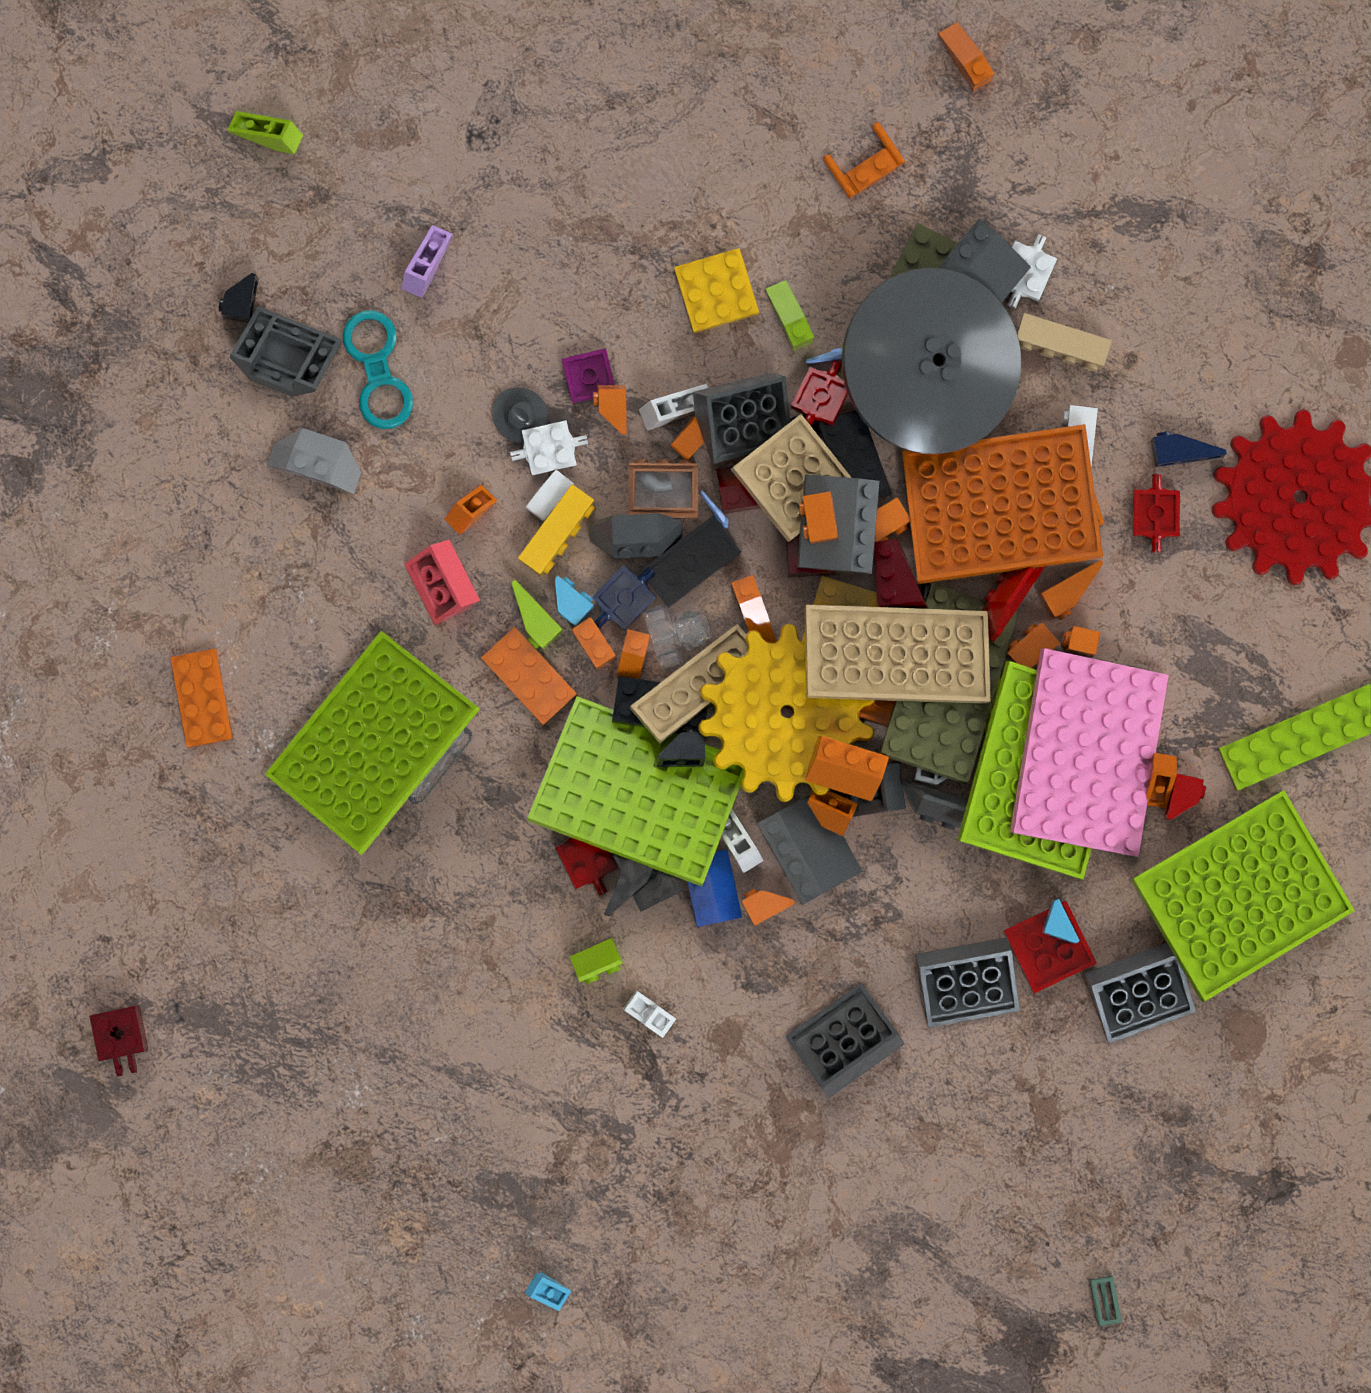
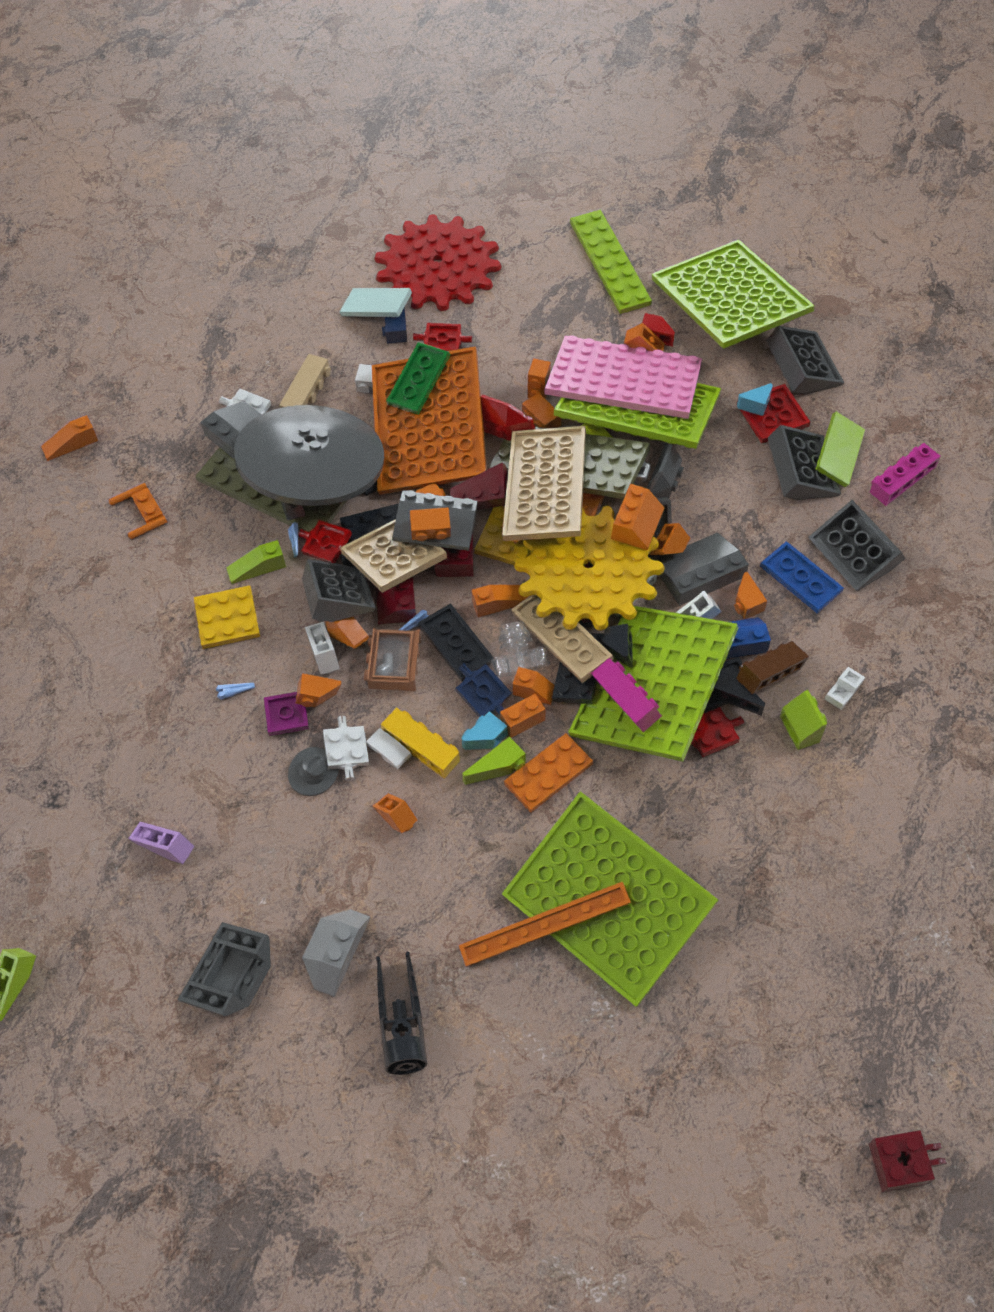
camera: 85 degrees left, 25 degrees down
(201, 698) = (559, 1067): orange plate -> none
(204, 541) = (407, 1052): none -> black piece
(240, 299) = (170, 1013): black slope -> none
(340, 676) = (544, 924): none -> orange plate
(377, 369) = (254, 890): teal bar -> none
(441, 581) = (459, 839): coral slope -> none
(609, 757) = (626, 694): none -> dark pink brick
(620, 311) = (229, 690): none -> light blue piece
(635, 534) = (430, 681): dark grey wedge -> none
(663, 930) = (771, 667): none -> reddish brown brick
(802, 971) = (801, 577): none -> blue tile
(958, 1108) = (904, 473): none -> dark pink brick
(992, 1029) = (840, 449): none -> lime tile
(1058, 486) = (418, 378): none -> green tile
(1066, 594) = (498, 387): orange slope -> none
(1208, 419) = (376, 302): none -> light aqua tile

